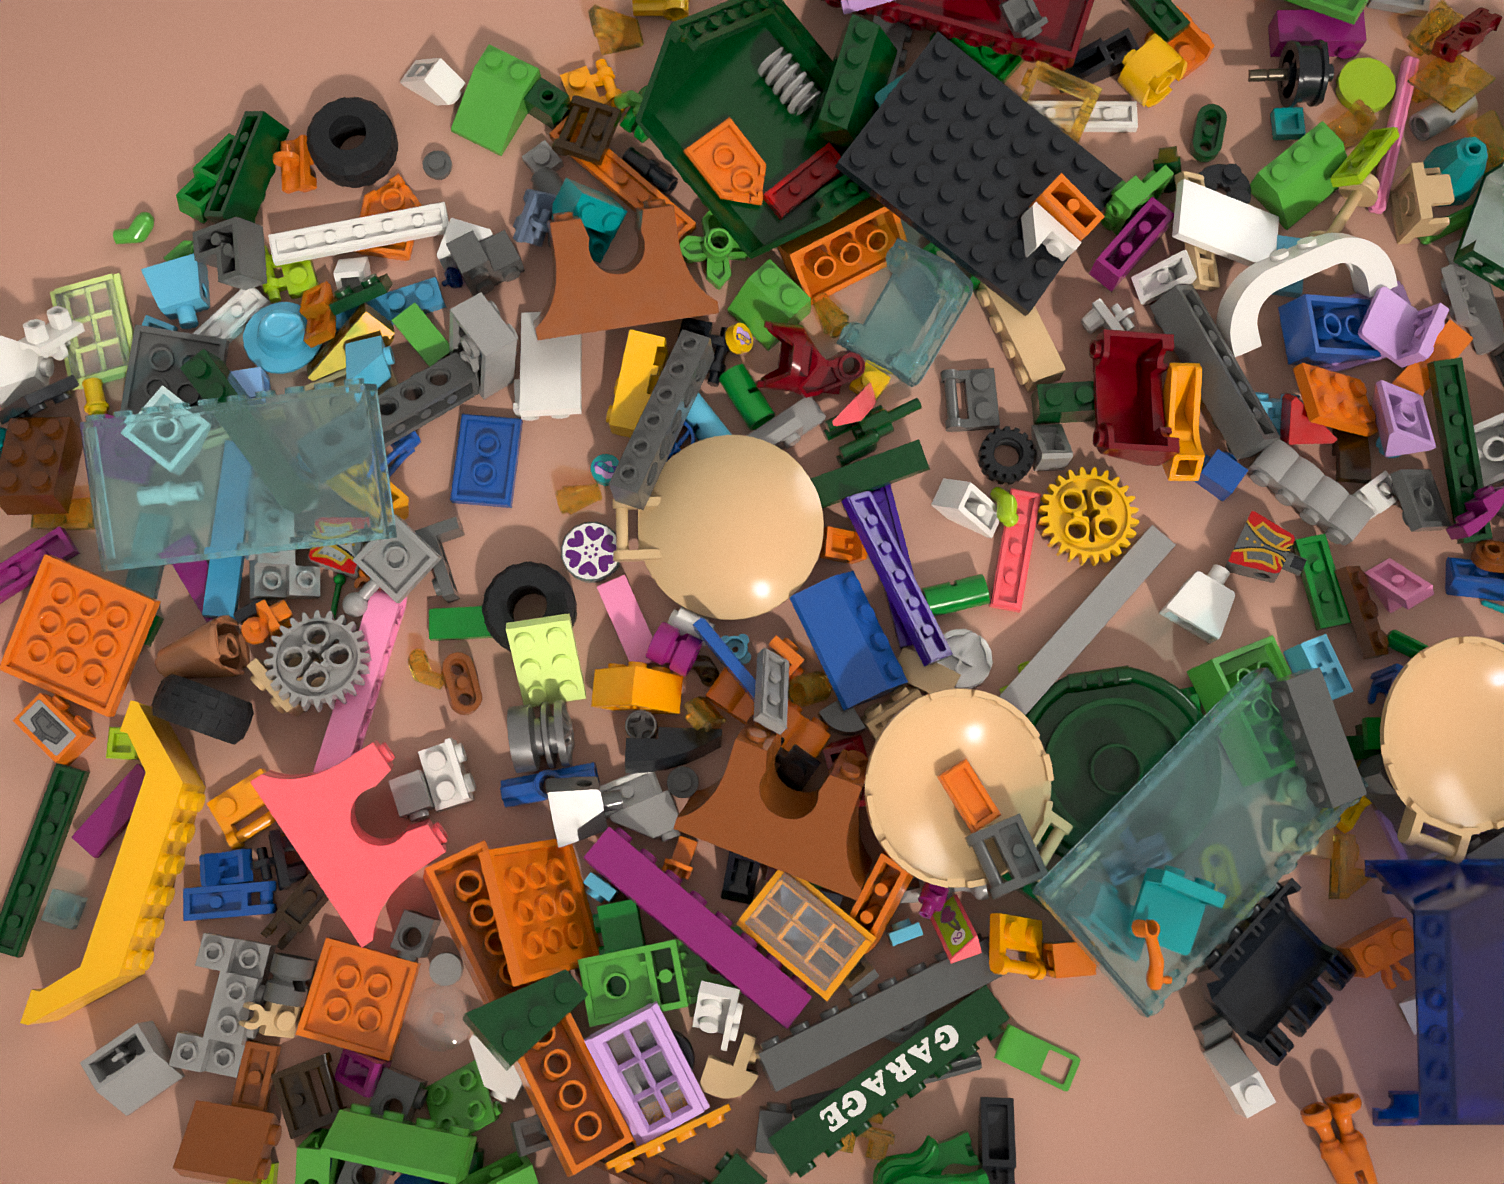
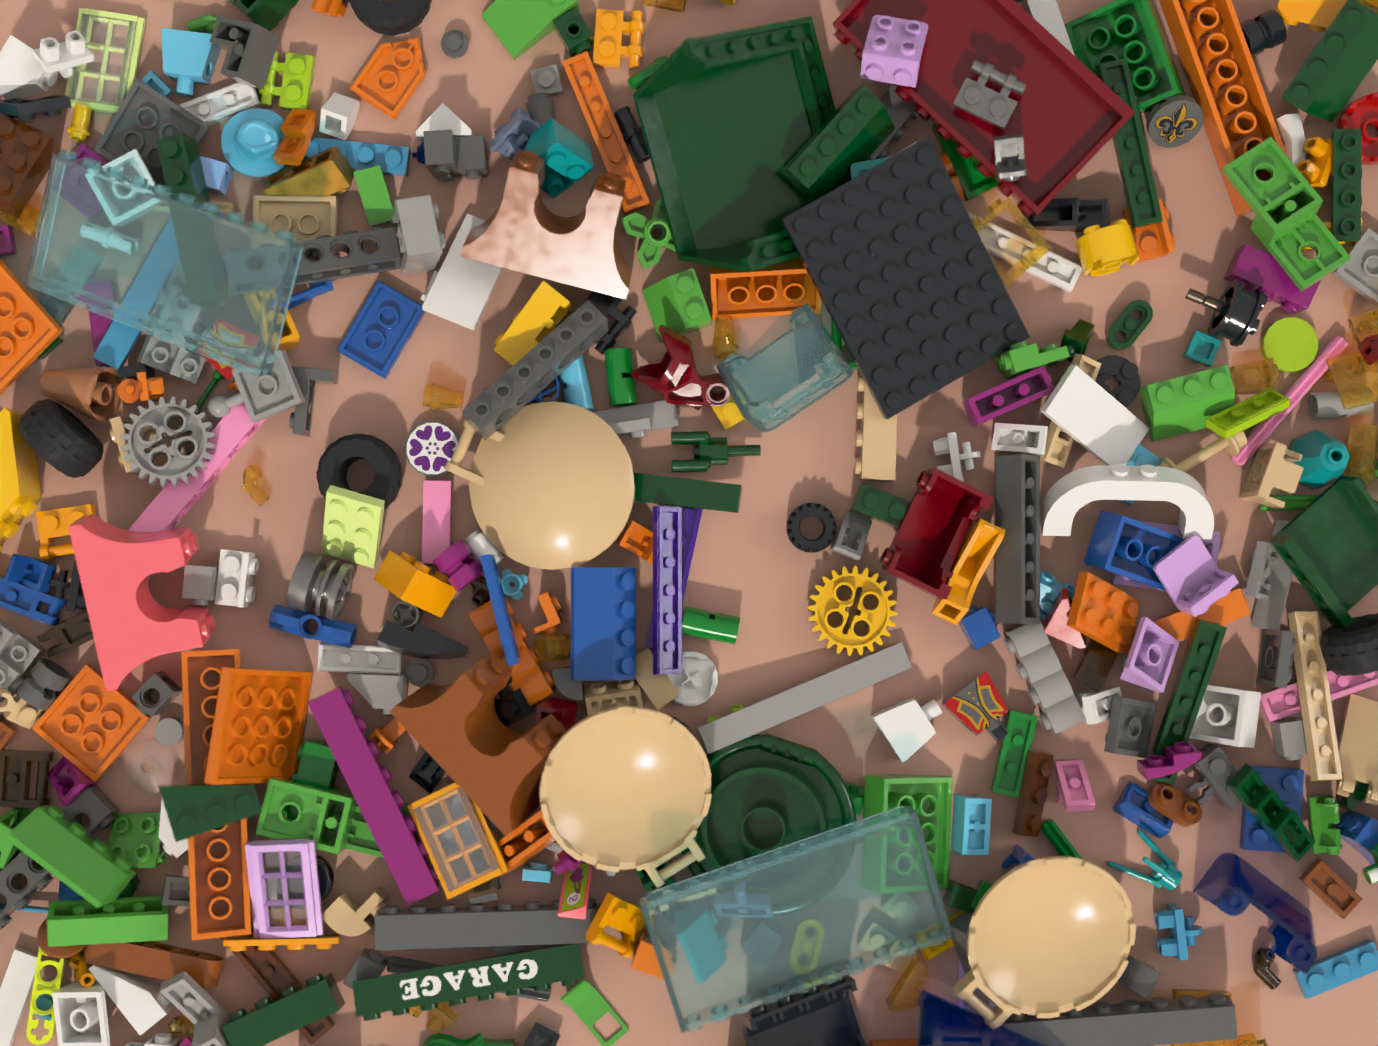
camera: 25 degrees right, 10 degrees up
(358, 233) = (359, 79): white tile -> none
(369, 360) = (313, 207): medium azure slope -> none
(370, 288) = (336, 137): dark green plate -> none
(457, 624) = (296, 457): green tile -> none
(462, 684) = (280, 510): dark orange plate -> none
(579, 807) = (325, 658): torso -> none
(595, 133) = (599, 82): dark brown plate -> none
(599, 888) = (312, 727): medium azure plate -> none
(604, 468) = (475, 383): teal tile -> none
(627, 99) = (644, 64): bright green arm -> none
(703, 714) = (458, 629): clear yellow slope -> none
(718, 1011) = (362, 864): white bracket -> none
(729, 164) = (698, 167): orange tile -> none
(739, 338) = (638, 322): yellow tile -> none
(771, 691) = (517, 640): light grey tile -> none
(787, 82) = (783, 118): light grey piece -> none
(803, 181) = (758, 209): red tile -> none
(857, 408) = (704, 432): coral slope -> none
(966, 506) = (757, 556): white slope -> none
(969, 796) = (633, 797): orange tile -> none
(979, 399) = (814, 469): dark grey plate -> none
(1005, 506) = (788, 571): lime arm -> none
(1015, 554) = (779, 609): coral tile -> none
(1016, 851) = (647, 859): dark grey plate -> none
(1043, 228) = (929, 354): white slope -> none
(1069, 207) = (957, 350): orange brick -> none
(1150, 930) = (710, 974): orange piece -> none
(1174, 905) = (739, 963): teal bracket -> none
(1317, 738) = (925, 885): dark grey brick -> none

